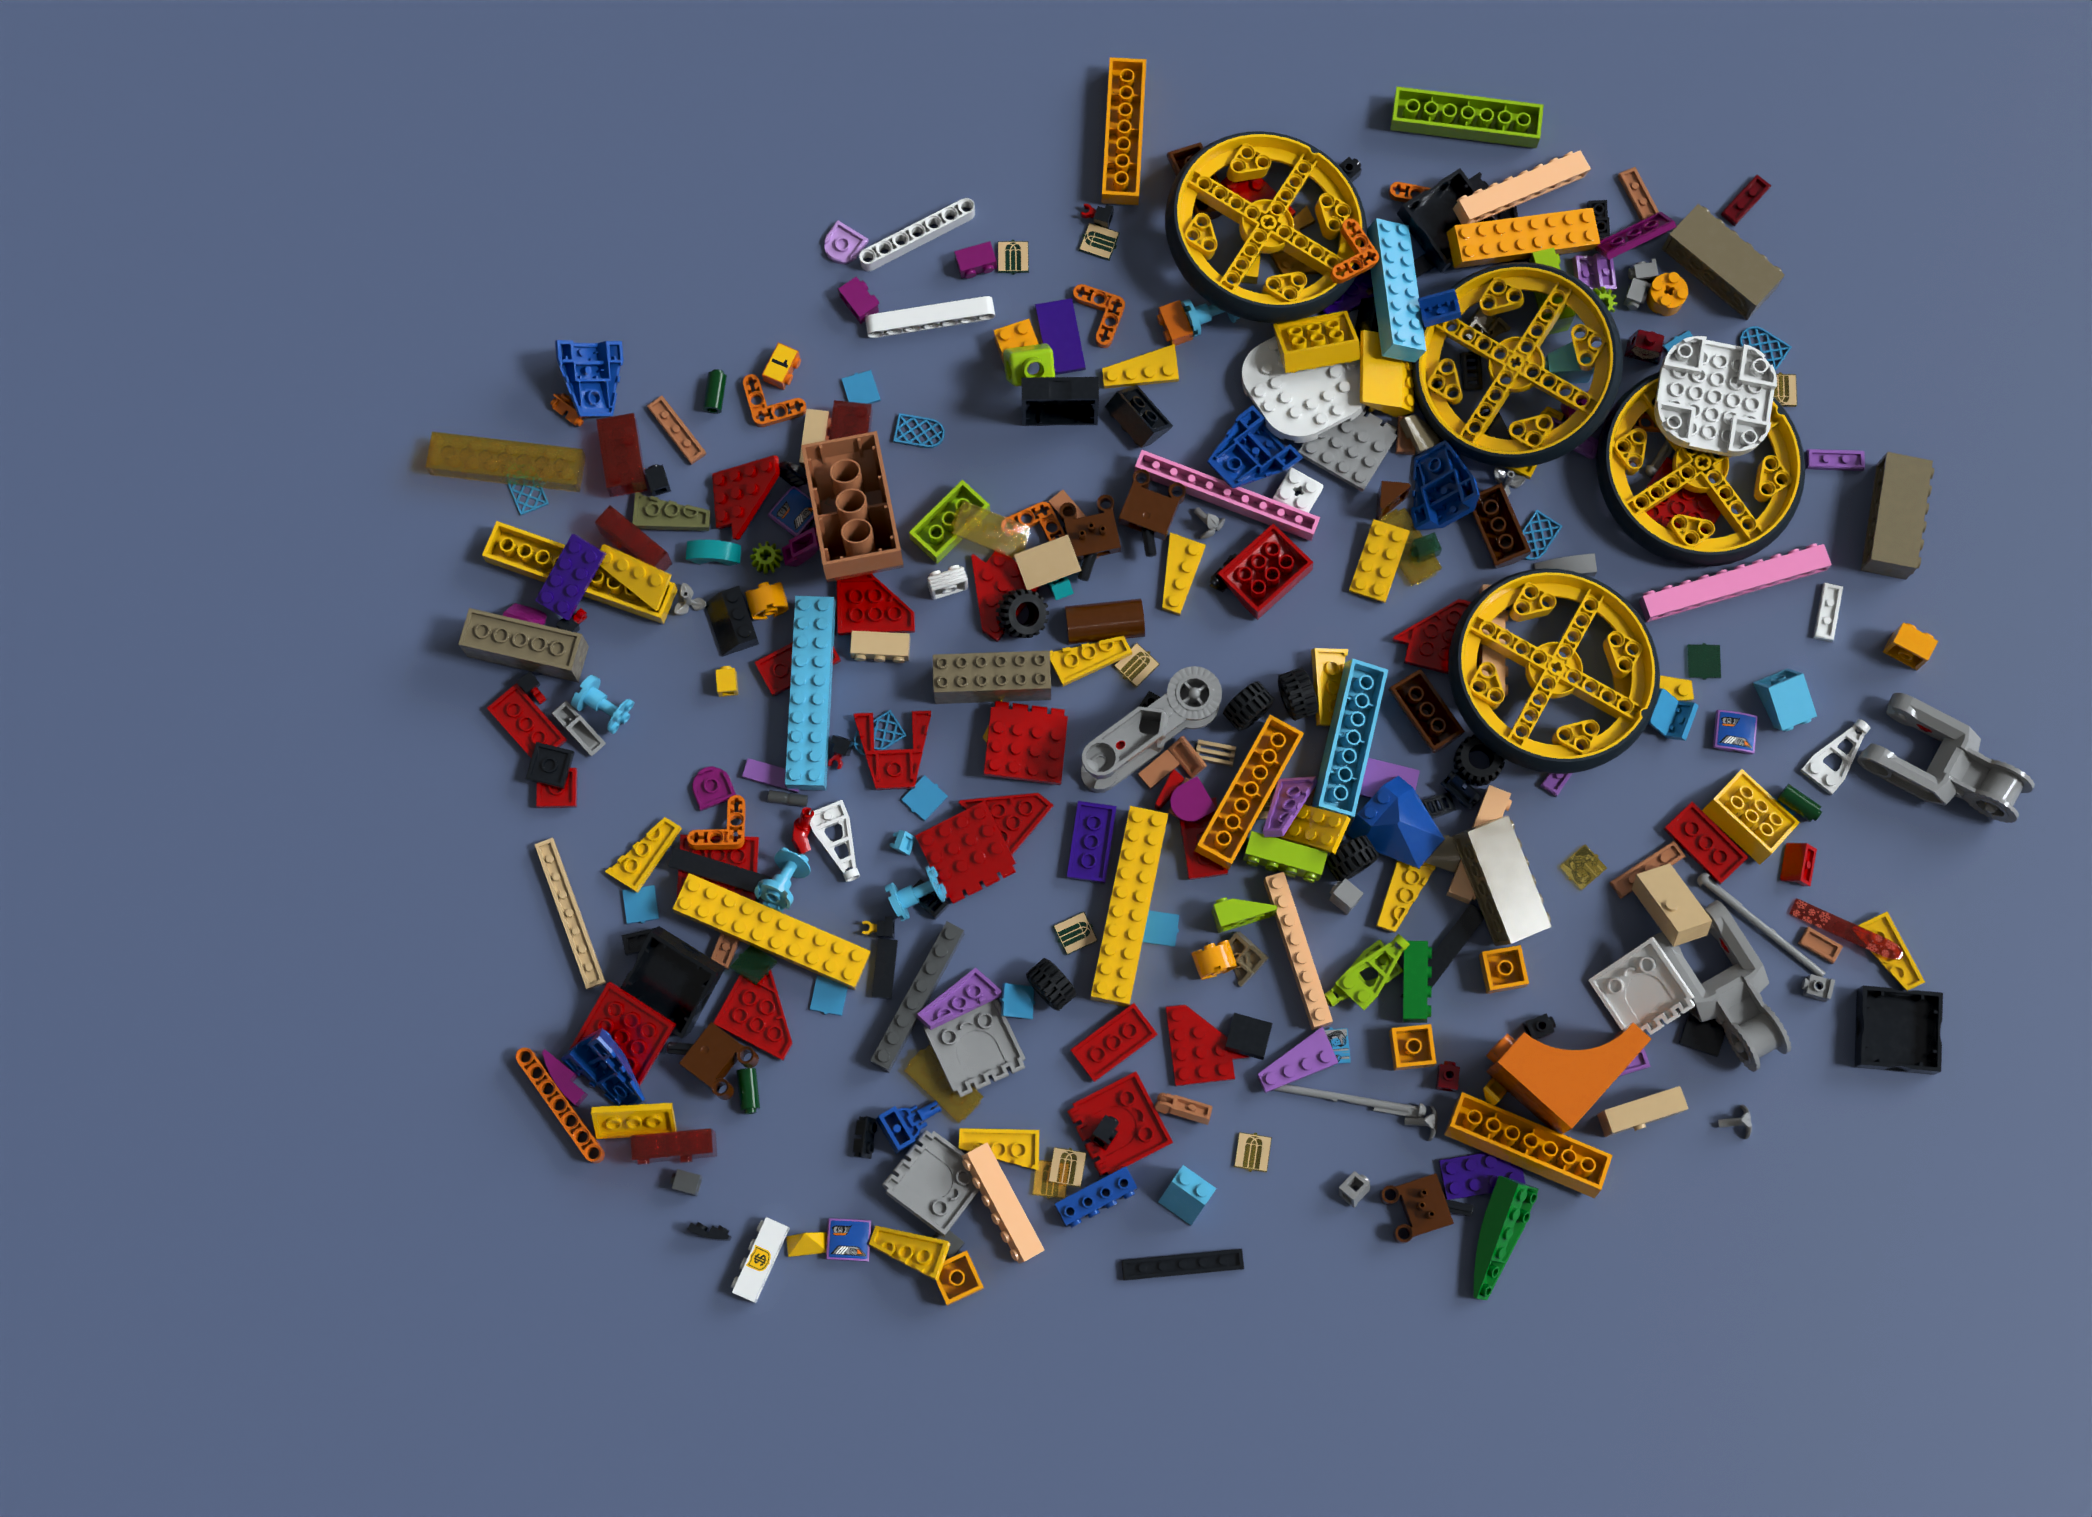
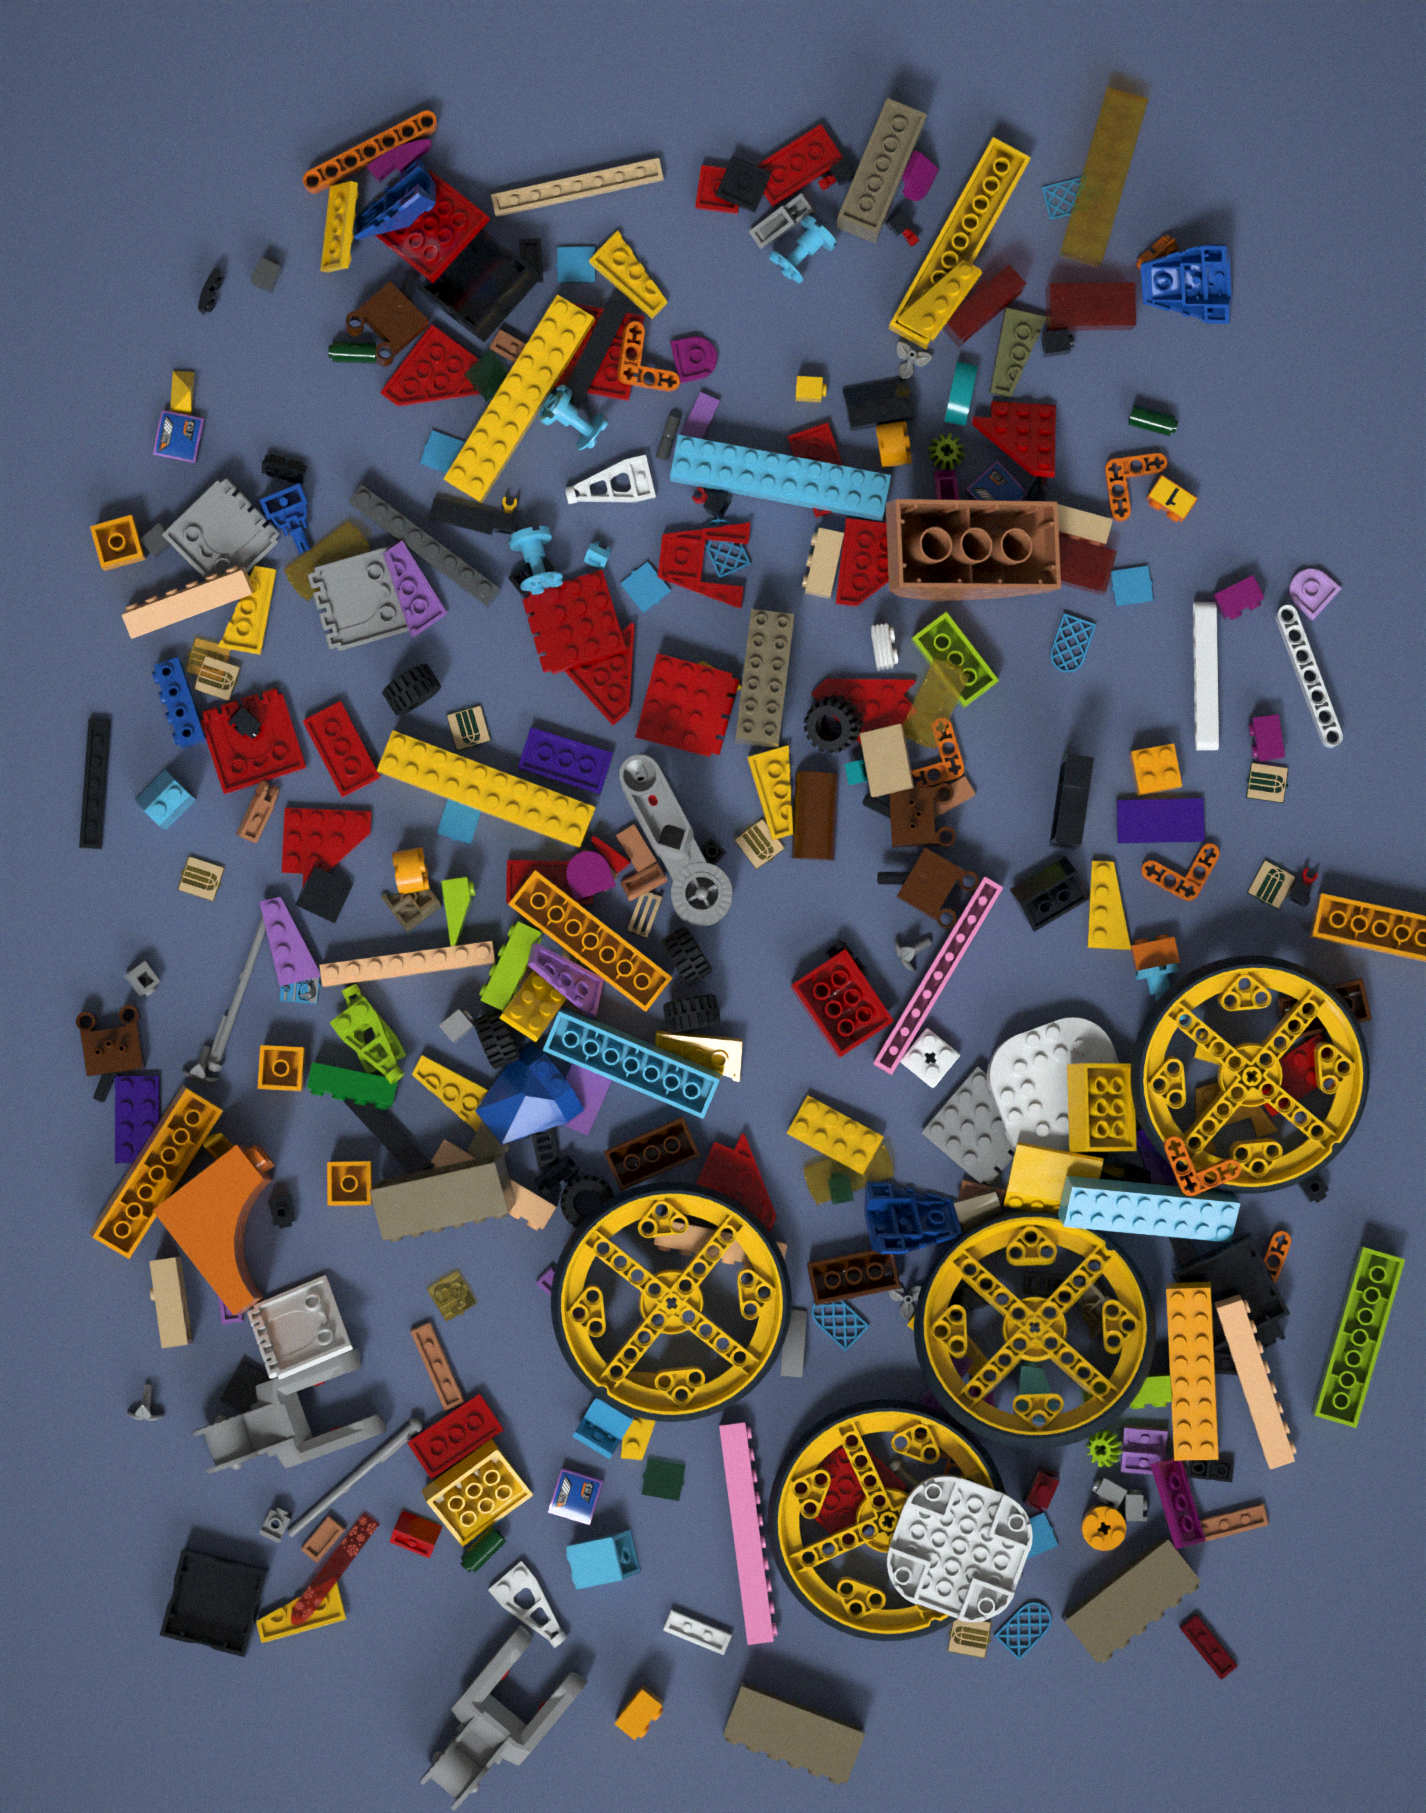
camera: 100 degrees right, 10 degrees up
(570, 576) = (950, 230): dark purple plate -> none
(673, 1146) = (304, 264): clear red brick -> none
(676, 430) = (1115, 372): nougat tile -> none
(760, 1260) = (172, 341): white brick -> none
(801, 831) = (626, 446): red arm -> none
(914, 1250) = (149, 506): yellow wing -> none
(1017, 1001) = (401, 651): dark azure piece -> none
(1019, 358) = (1117, 774): lime piece -> none
(1181, 568) = (861, 911): yellow wing -> none
(1251, 451) = (981, 1011): blue wedge -> none
(1389, 496) = (906, 1159): reddish brown slope -> none
(1439, 307) = (1111, 1251): blue bracket -> none
(1444, 1083) = (236, 1101): dark red brick -> none
(1500, 1231) = (71, 1125): green wedge -> none
(1671, 905) = (387, 1378): tan brick -> none
(1835, 460) = (875, 1681): medium lavender tile -> none

